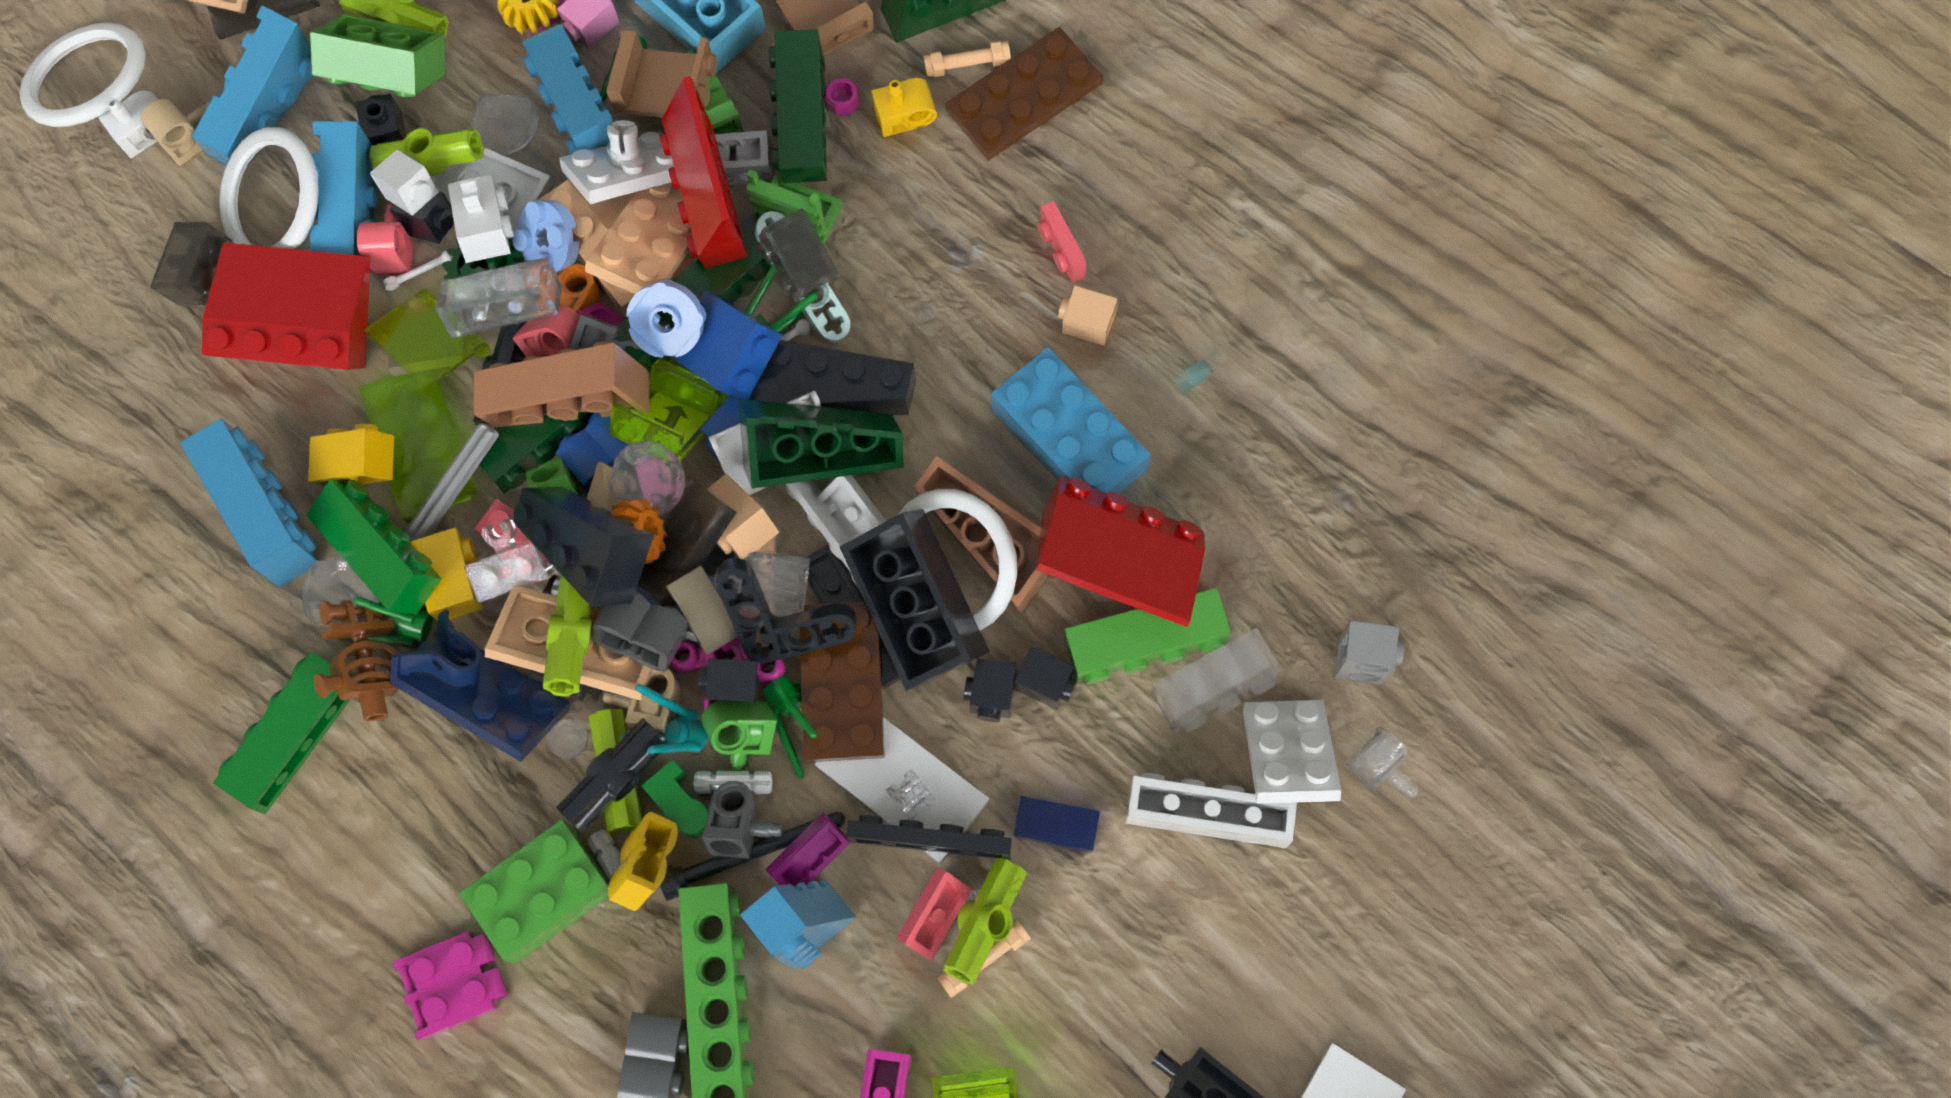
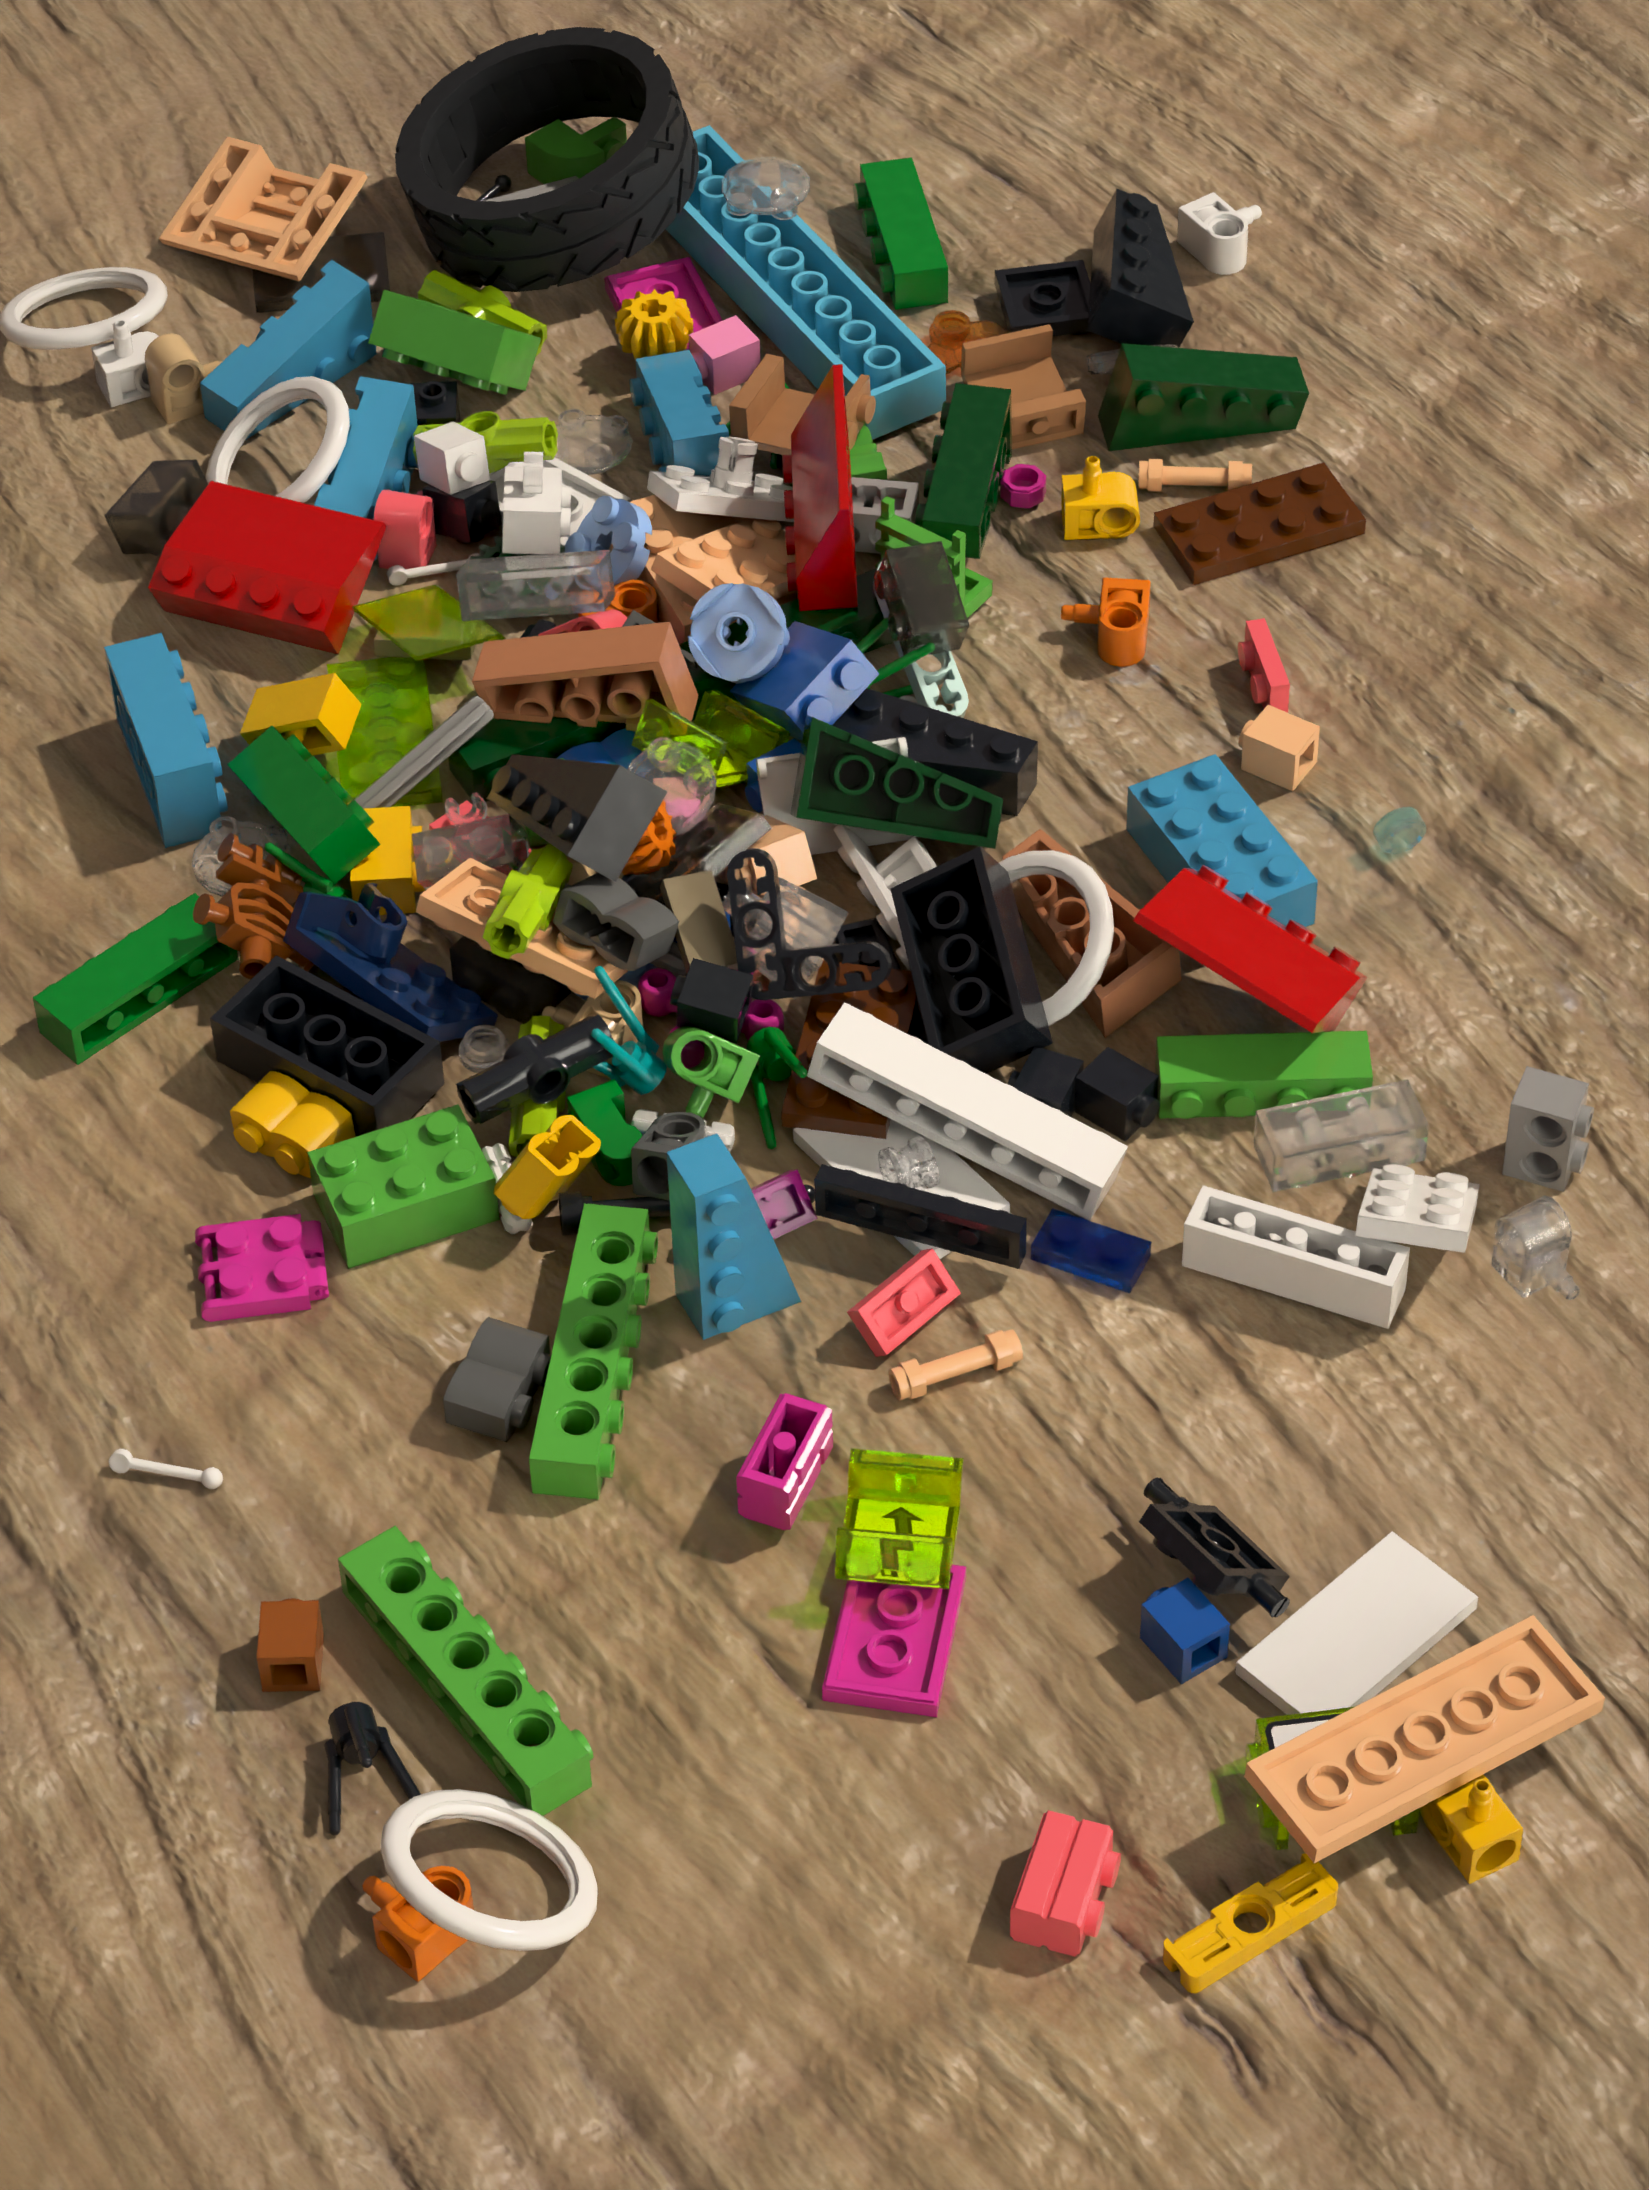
camera: 10 degrees right, 25 degrees down
(439, 849) = (288, 1122): none -> yellow brick
(449, 778) = (328, 1045): none -> black brick
(942, 735) = (967, 1111): none -> white brick
(943, 208) = (1120, 619): none -> orange piece
(984, 921) = (967, 1313): lime piece -> none

